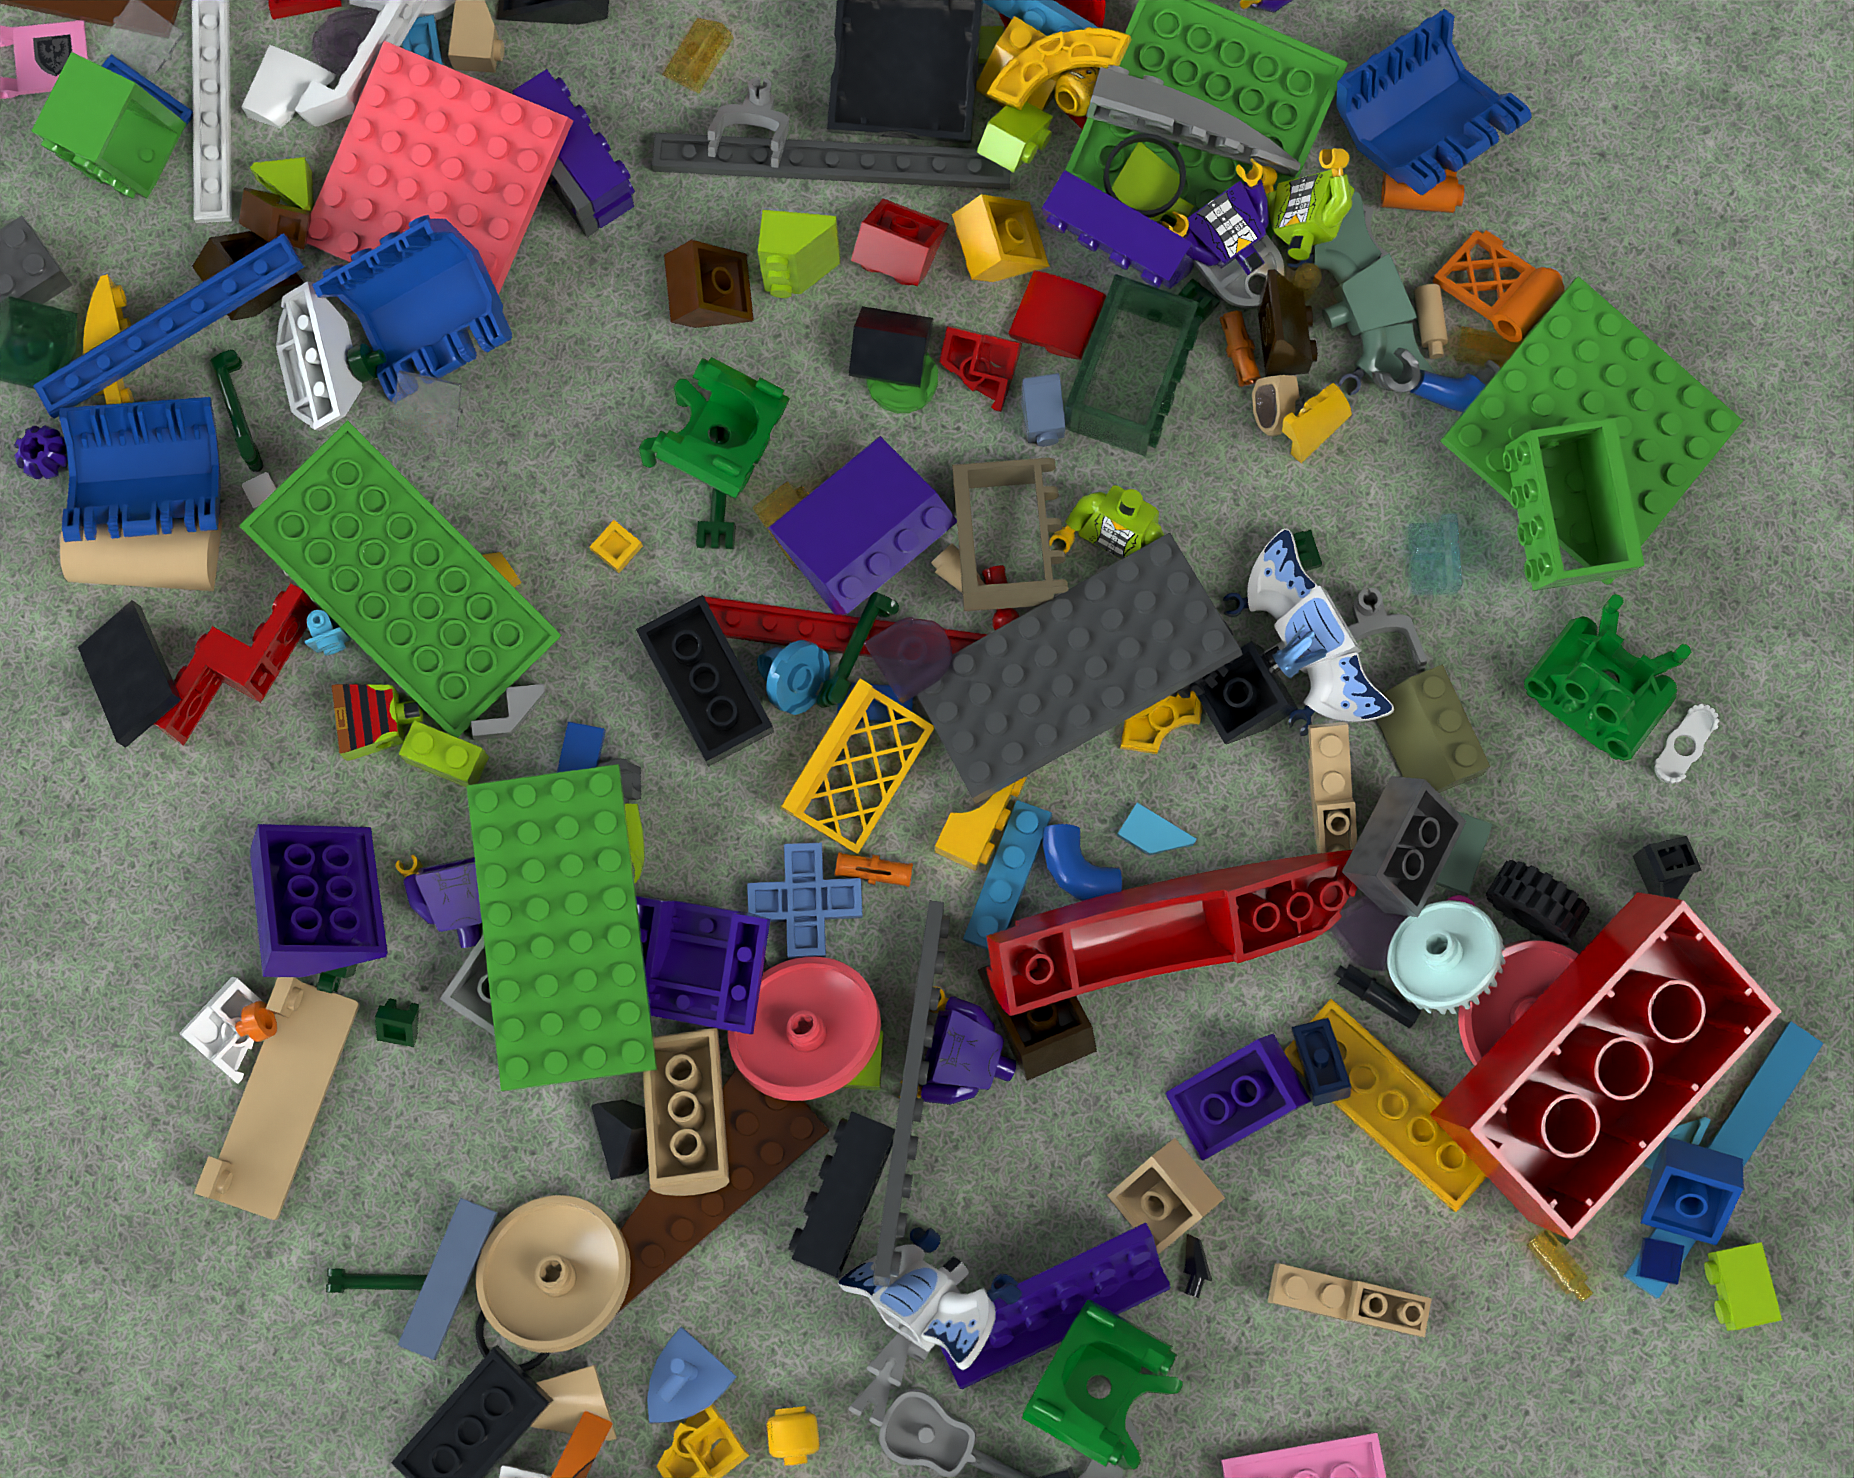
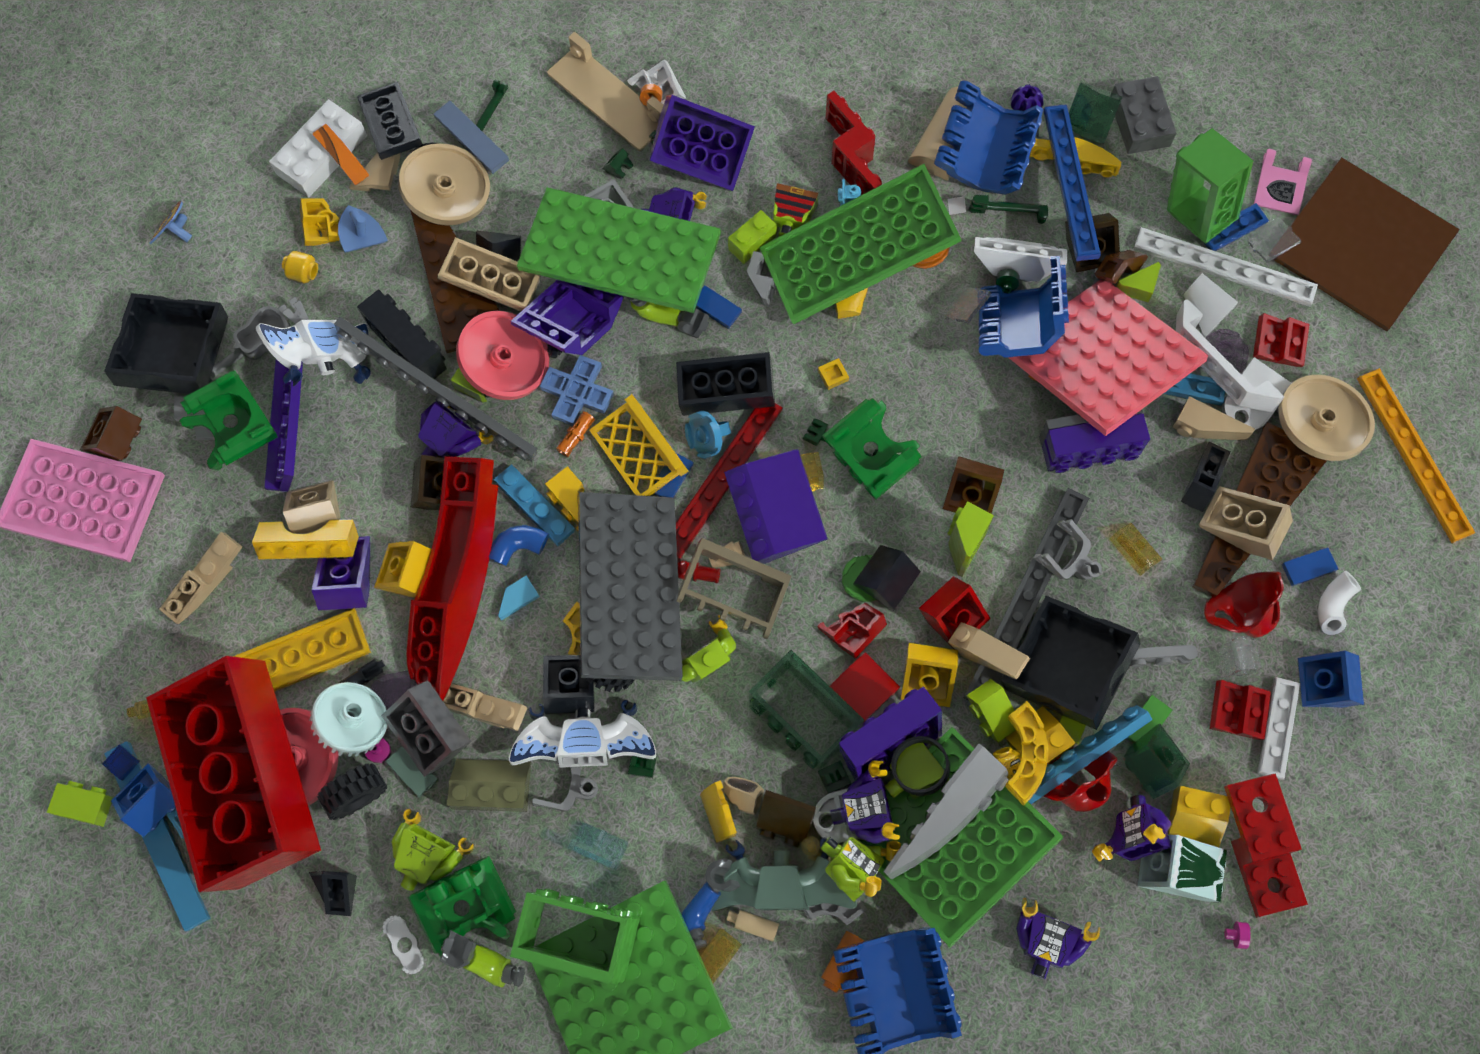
camera: 115 degrees right, 5 degrees down
(129, 674) = (871, 94): black tile -> none
(836, 689) = (686, 452): dark green hinge -> none
(911, 655) = (685, 502): clear purple tile -> none
(940, 166) = (988, 651): none -> tan slope
(1043, 409) = (802, 643): sand blue slope -> none
(1192, 1011) = (403, 568): none -> yellow slope
(1195, 1266) = (267, 508): black bar -> none
(1240, 348) = (793, 791): orange pin -> none
(1245, 1214) = (334, 539): none -> yellow arch
(1288, 657) = (570, 715): flat silver piece -> none
(1321, 1062) = (336, 626): dark blue slope -> none
(1520, 304) = (739, 995): orange piece -> none
(1564, 772) = (423, 854): none -> lime torso
(1658, 619) = (482, 961): none -> piece

